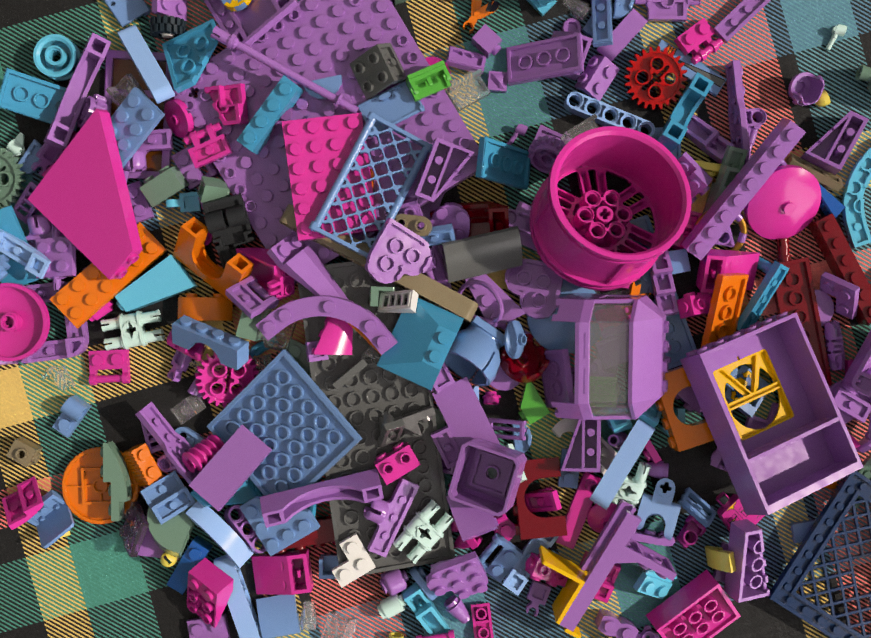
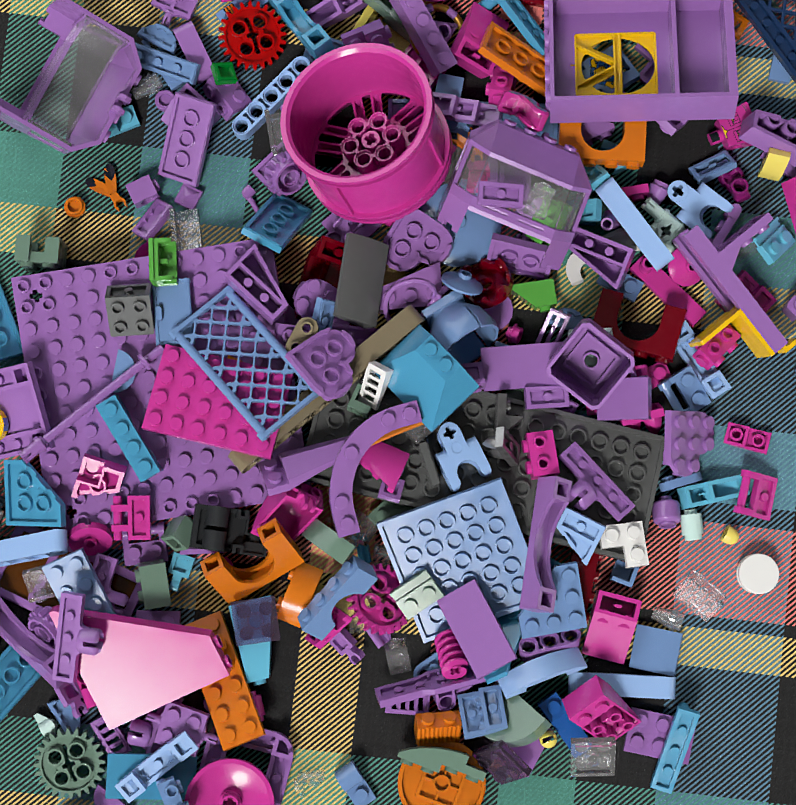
camera: 65 degrees left, 5 degrees down
(83, 137) = (73, 637): none -> medium lavender plate
(109, 360) = (312, 720): dark pink plate -> none
(127, 322) = (279, 687): light aqua pin -> none
(166, 282) = (255, 621): none -> clear purple plate
(170, 599) = (592, 756): none -> clear plate
(241, 405) = (417, 594): none -> plate
(247, 300) = (308, 533): medium lavender plate -> none
(345, 522) = (581, 532): none -> light blue wing
(370, 393) = (459, 451): none -> light blue piece
(425, 541) = (628, 446): light aqua pin -> none
(457, 609) = (721, 458): medium lavender cone -> none
(538, 594) = (739, 367): medium lavender plate -> none
(543, 500) = (642, 321): dark pink slope -> none
(598, 345) = (500, 194): none -> medium lavender plate
(607, 380) = (539, 200): none -> clear bracket
(613, 67) = (223, 73): none -> green tile
(683, 333) = (524, 108): none -> dark pink animal

